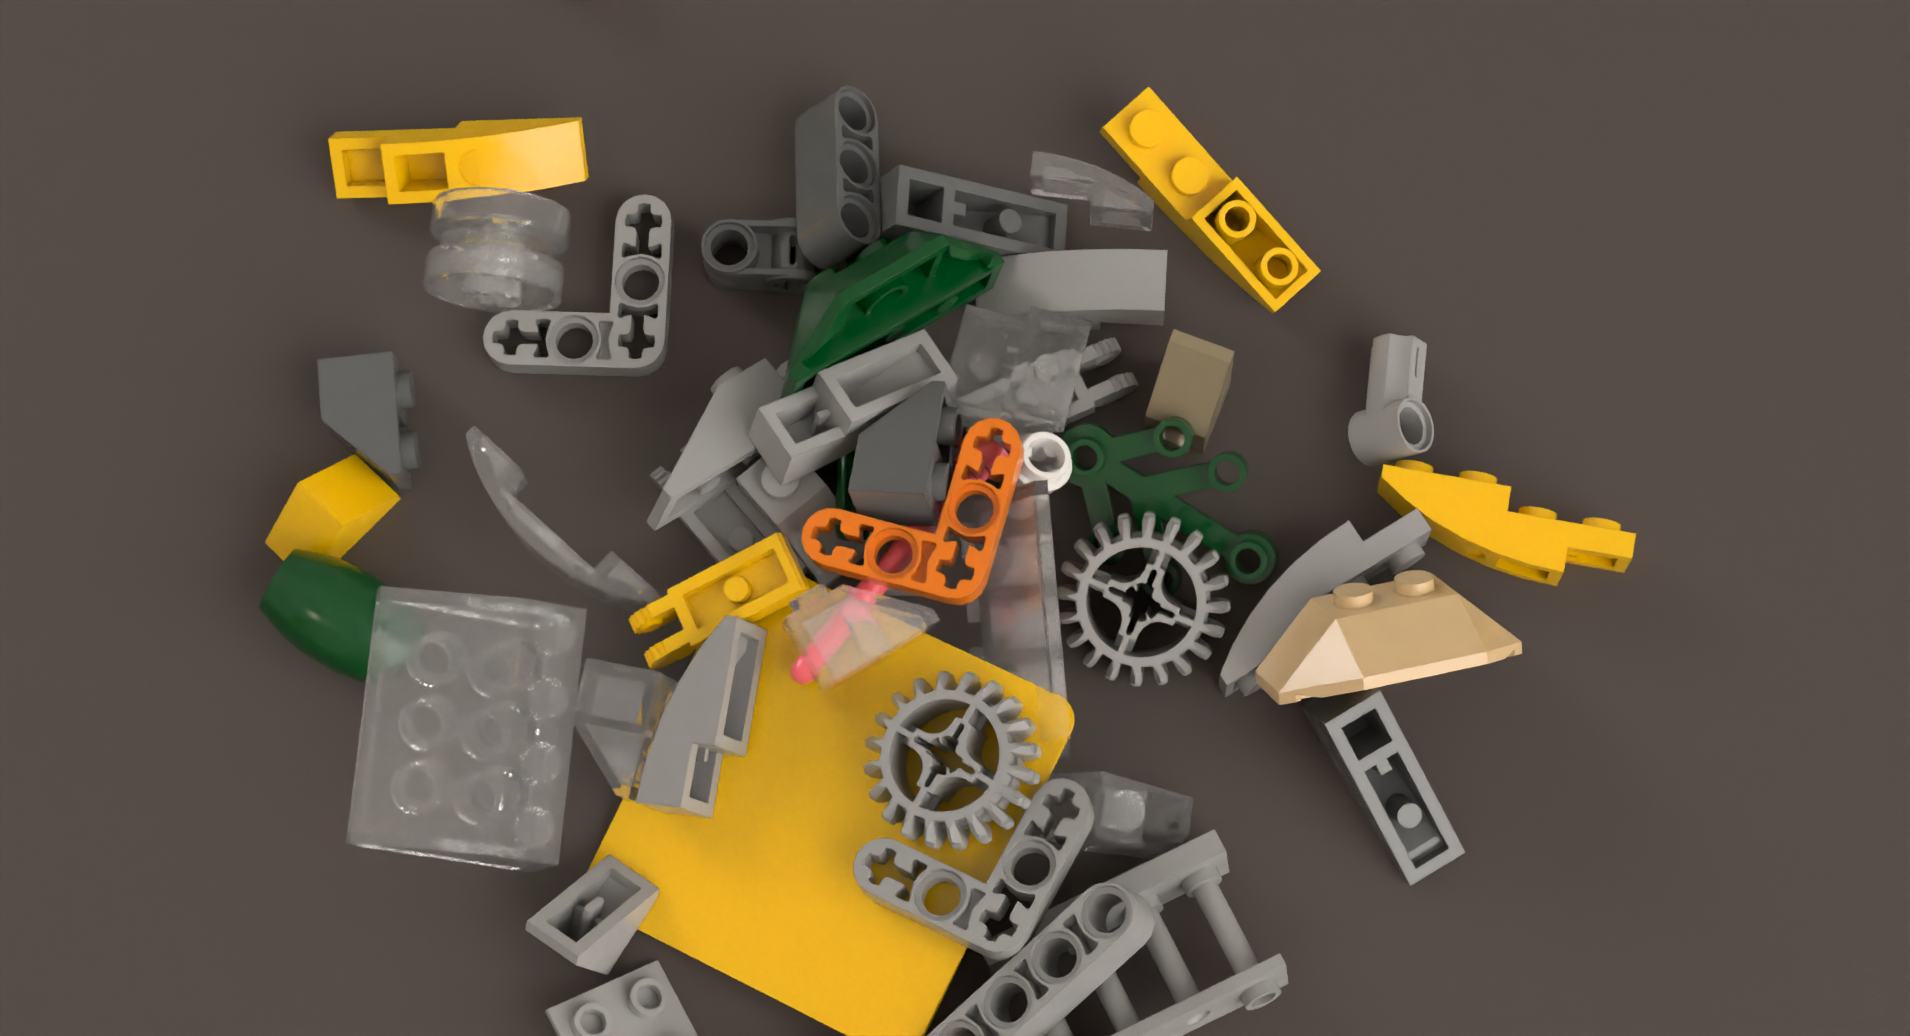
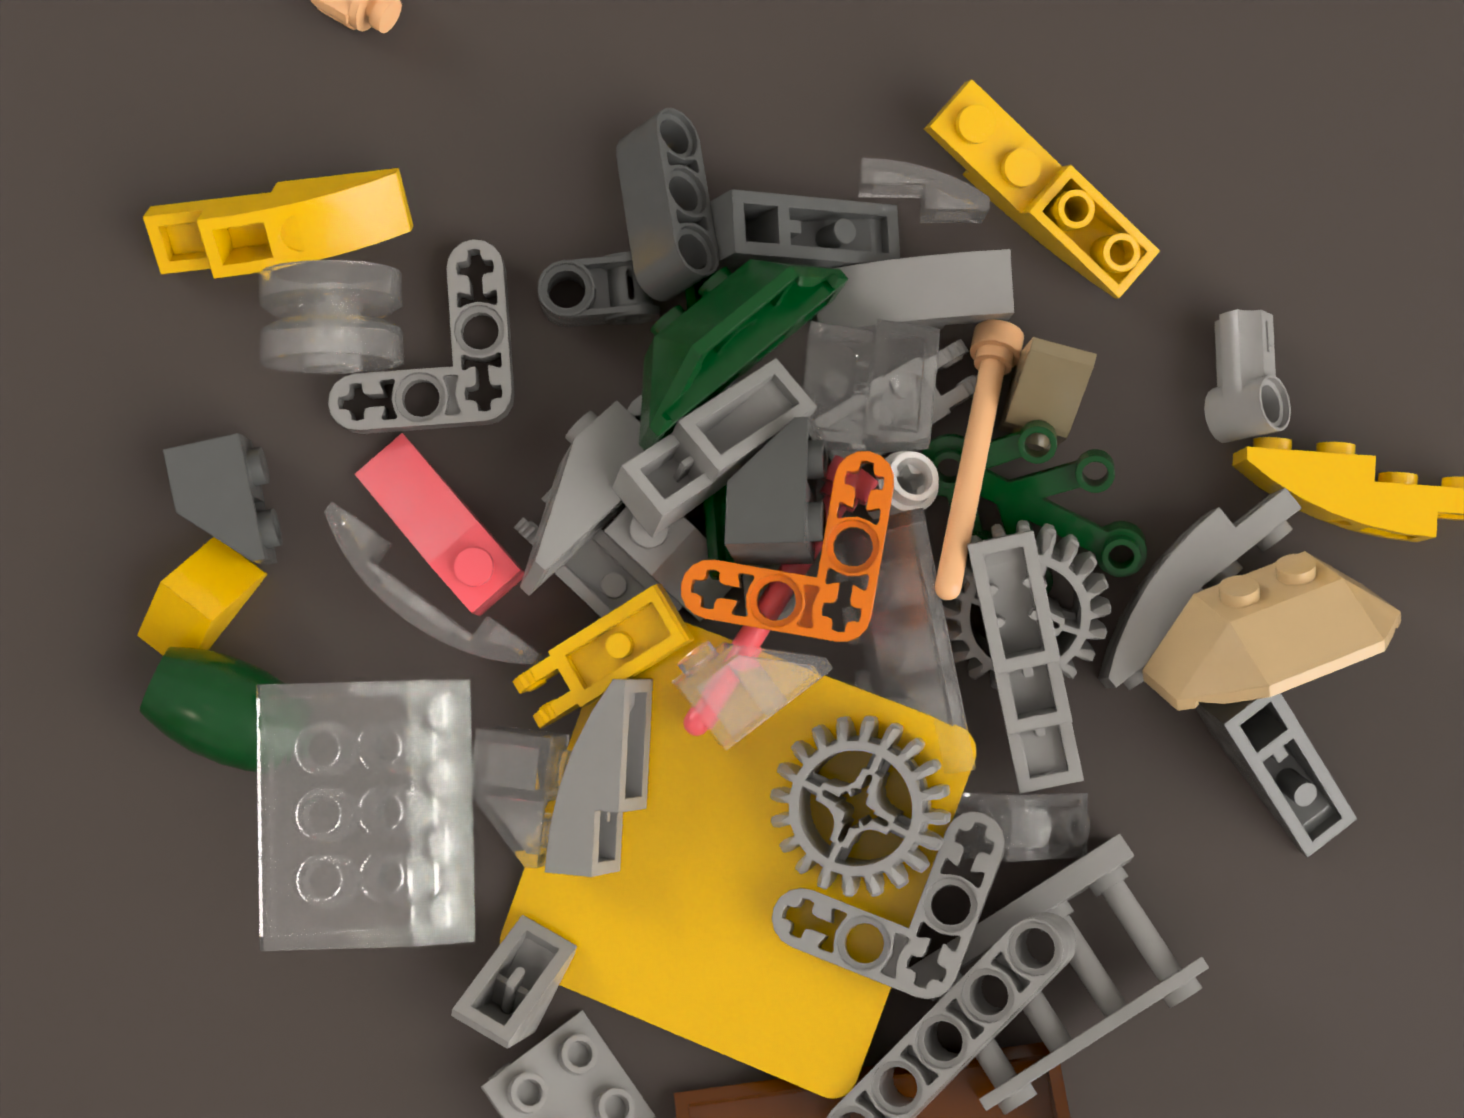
camera: 15 degrees left, 10 degrees up
(579, 466) = (440, 525): none -> coral slope
(1135, 644) = (1025, 661): none -> light grey slope
(1143, 357) = (995, 351): none -> light nougat piece

